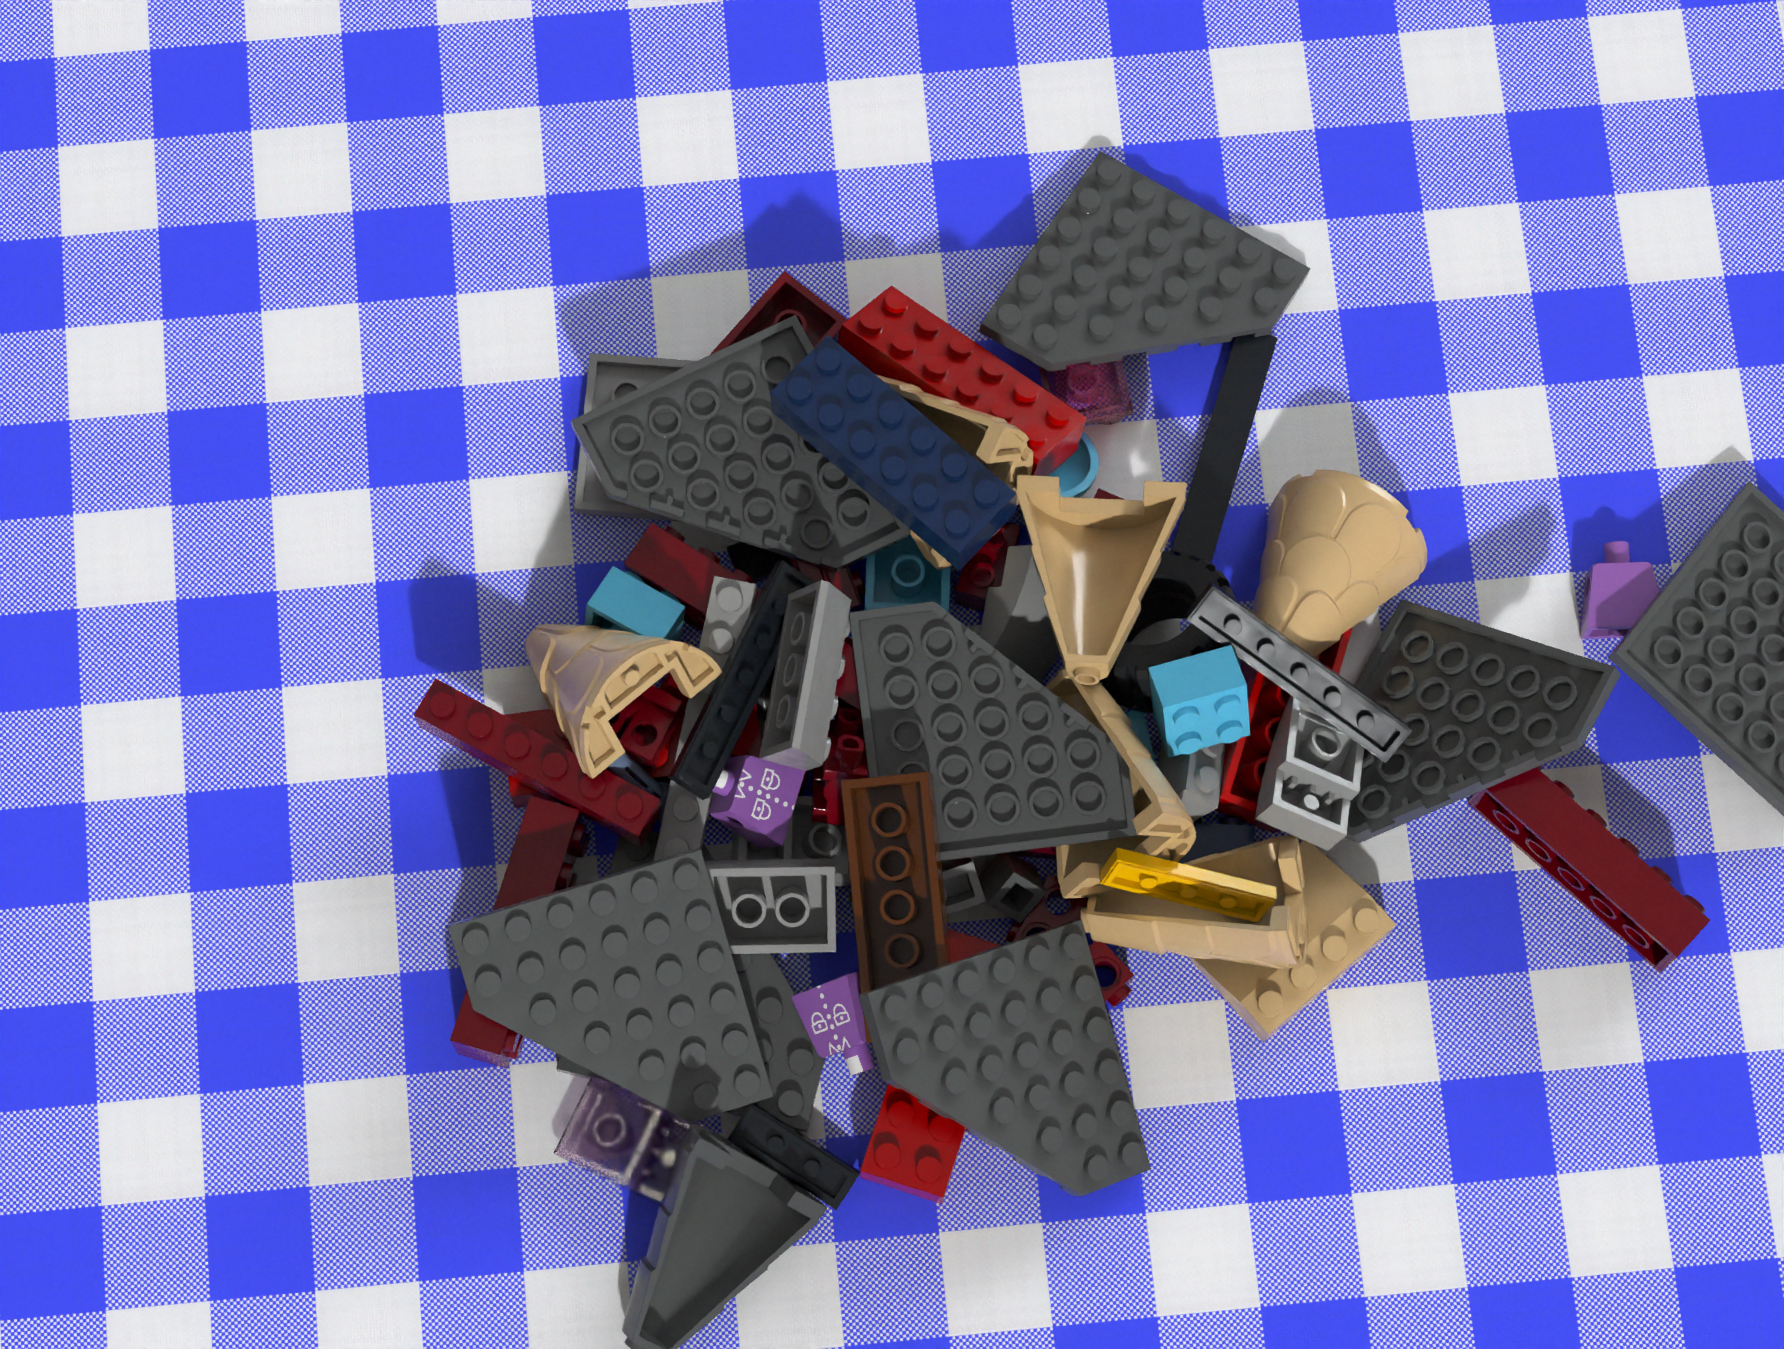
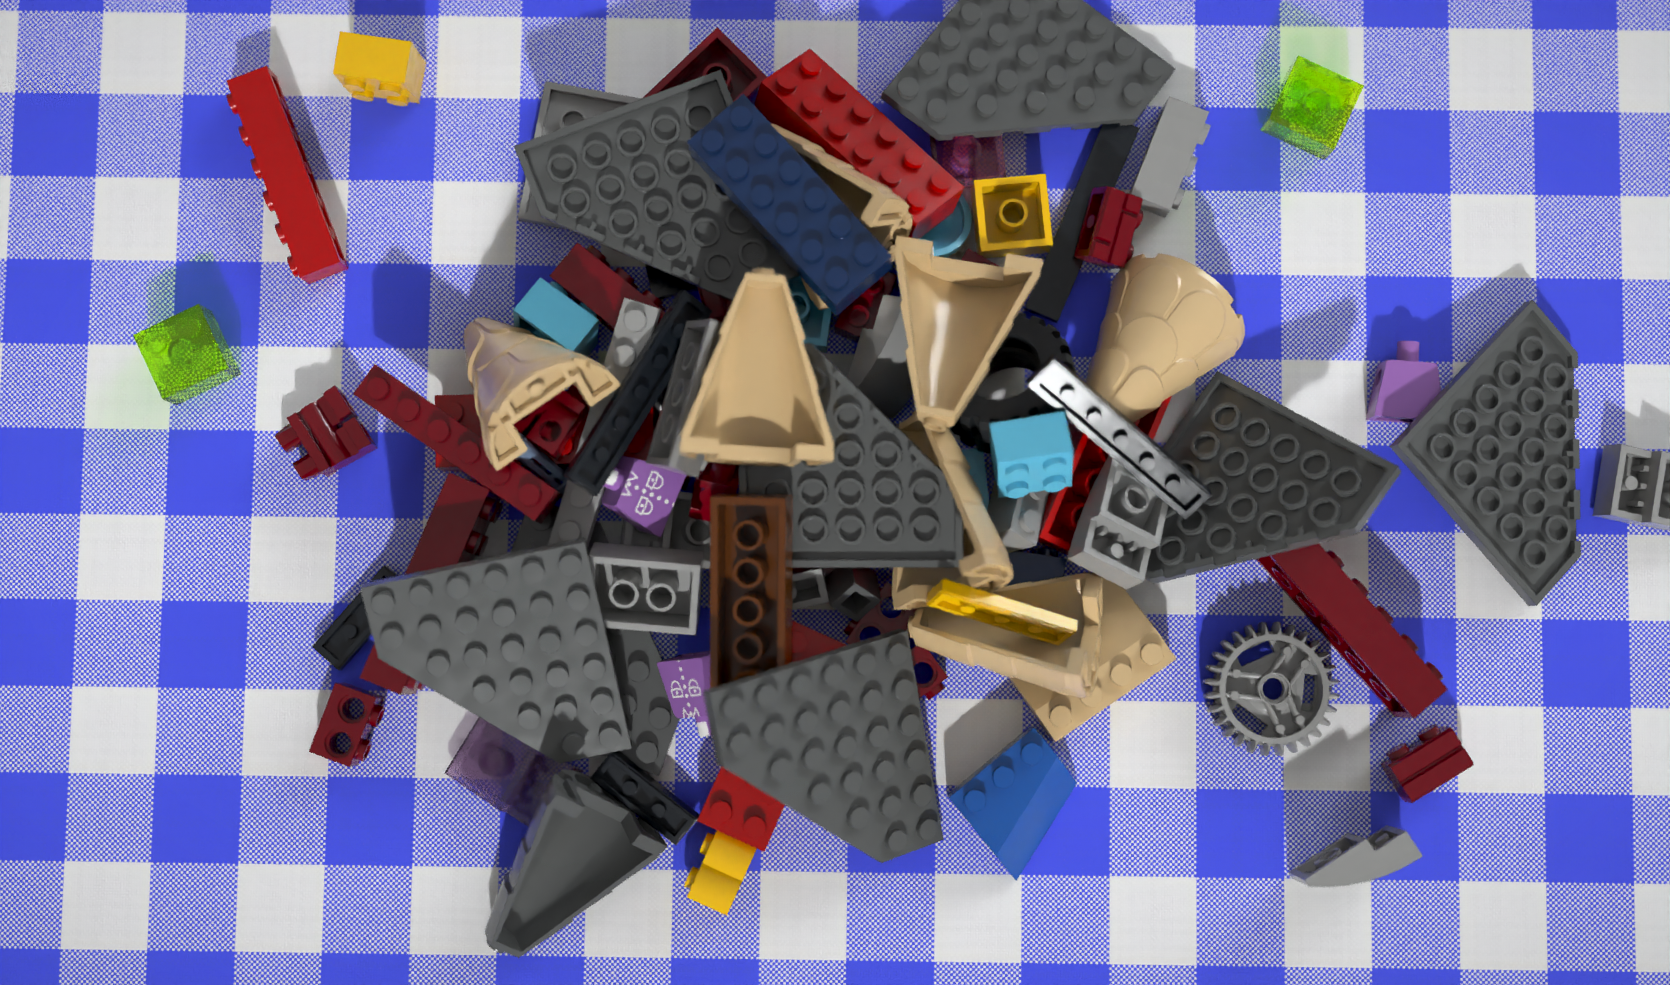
camera: 10 degrees right, 10 degrees up
(203, 702) = (187, 354): none -> clear neon green brick
(301, 488) = (286, 174): none -> red brick
(378, 775) = (328, 433): none -> dark red hips
(399, 356) = (379, 68): none -> yellow brick
(422, 1107) = (339, 719): none -> dark red brick
(427, 996) = (349, 630): none -> black tile
(885, 653) = (759, 386): none -> tan cone
(893, 1233) = (720, 872): none -> yellow brick
(1142, 445) = (1011, 216): none -> yellow brick
(1229, 1111) = (1015, 798): none -> blue wedge
(1257, 450) = (1109, 228): none -> dark red brick
(1315, 367) = (1170, 156): none -> light grey brick
(1470, 295) = (1311, 108): none -> clear neon green brick
(1479, 953) = (1244, 686): none -> light grey gear
(1638, 1133) = (1358, 859): none -> light grey slope
(1703, 1018) = (1426, 762): none -> dark red brick

